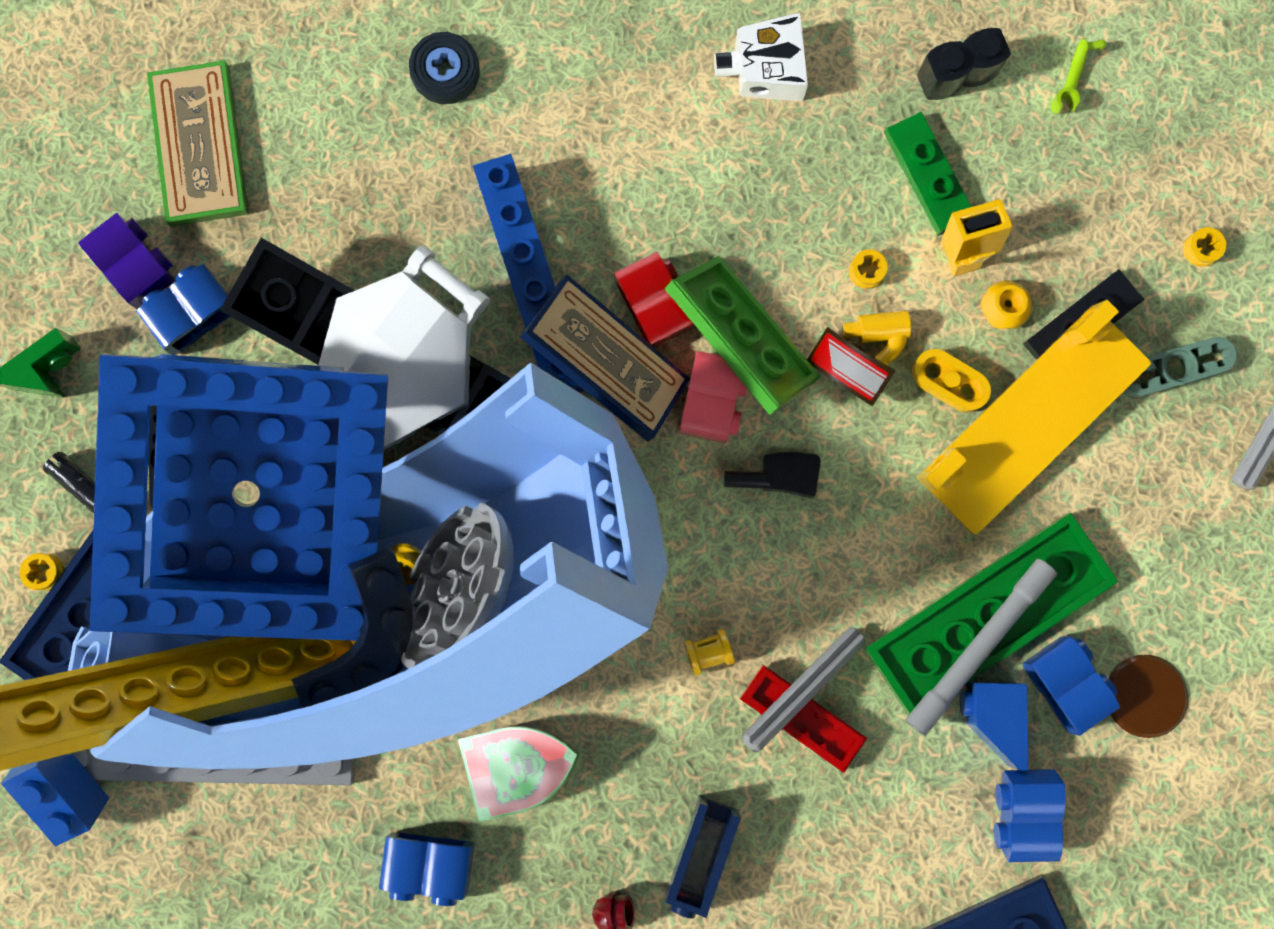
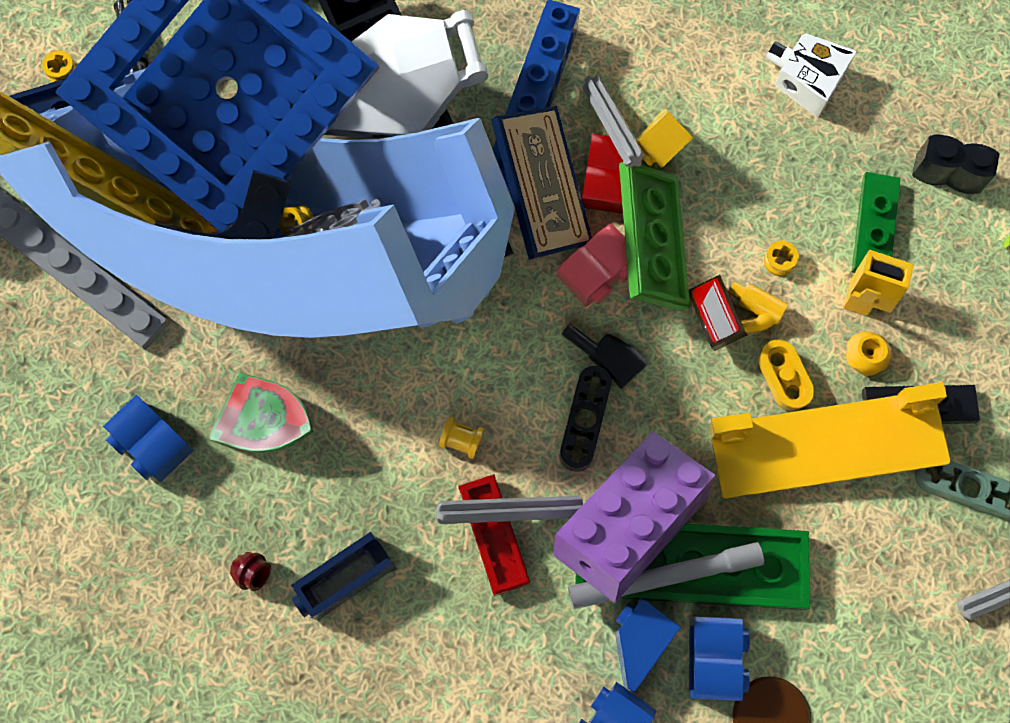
camera: 35 degrees right, 10 degrees down
(627, 248) = (613, 122): none -> light grey axle
(685, 232) = (663, 139): none -> yellow slope
(824, 575) = (601, 396): none -> black beam
(919, 617) = (633, 516): none -> medium lavender brick

